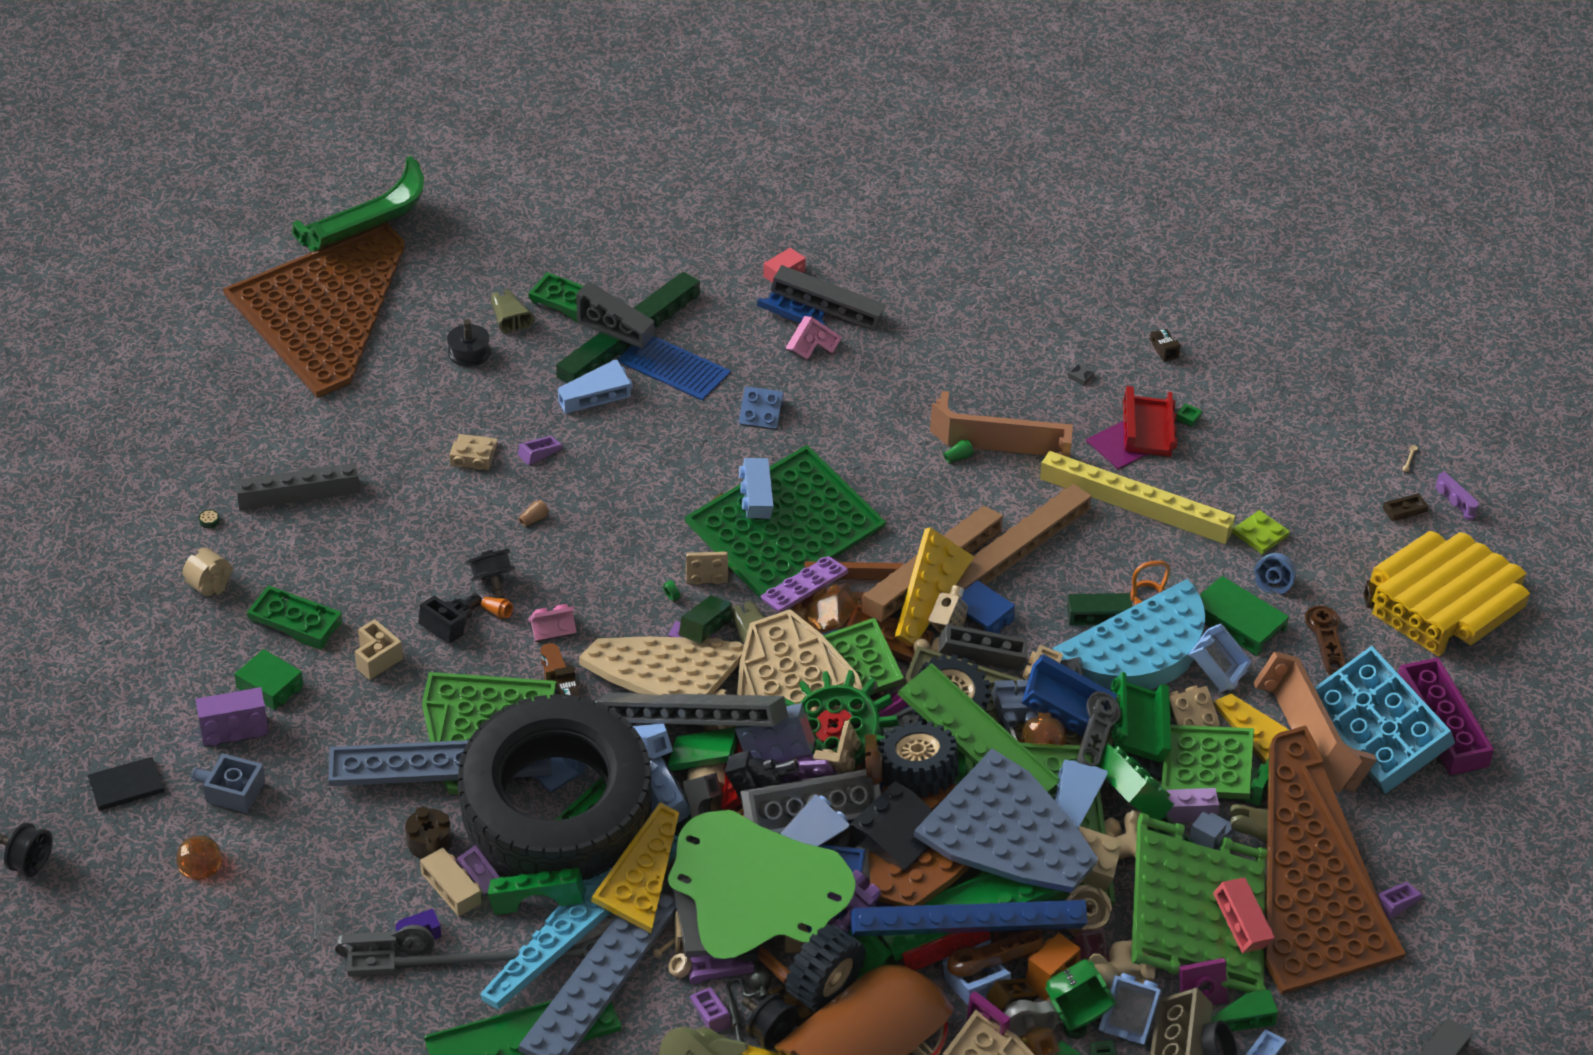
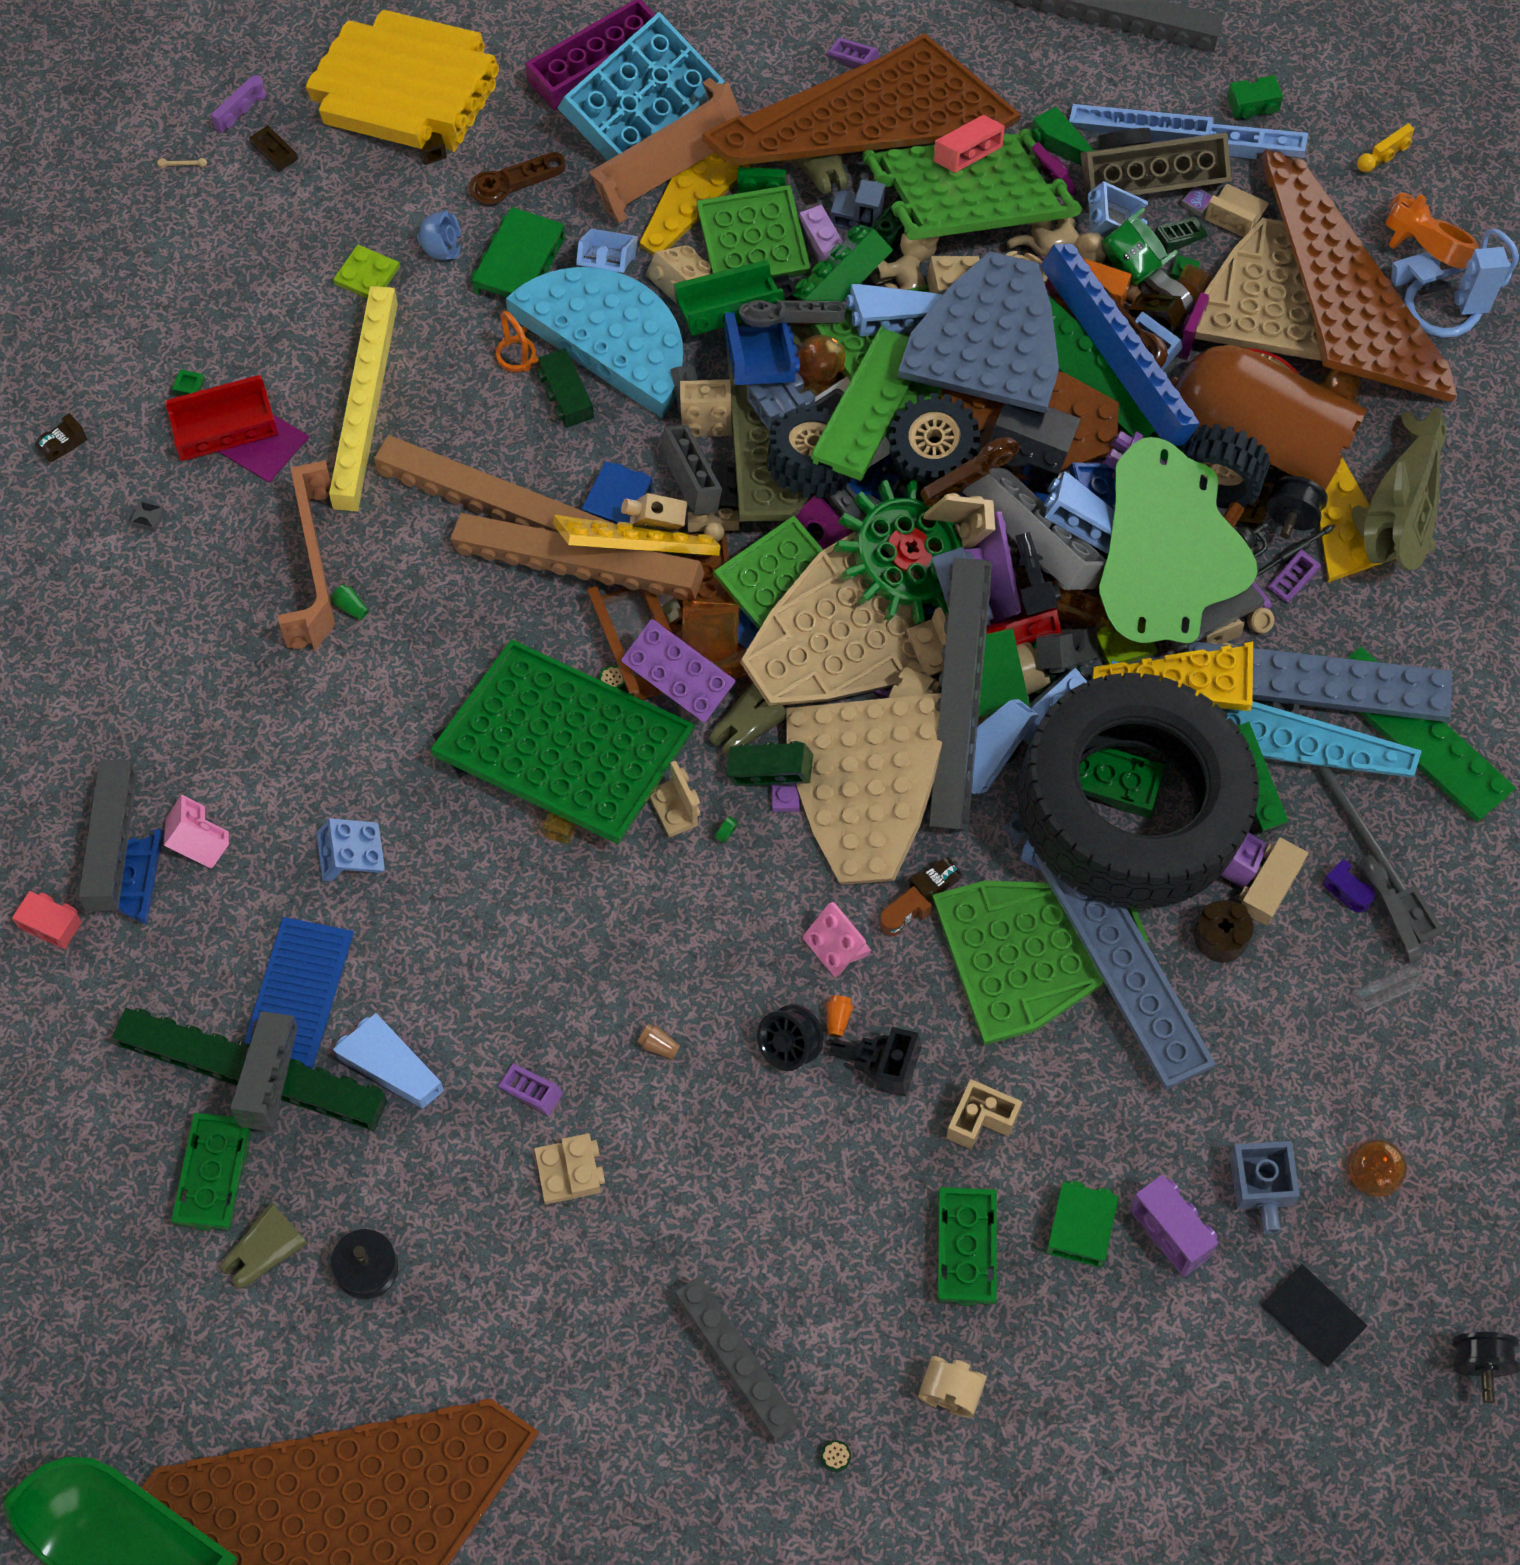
camera: 110 degrees left, 20 degrees up
(756, 488) = (542, 770): light blue brick -> none

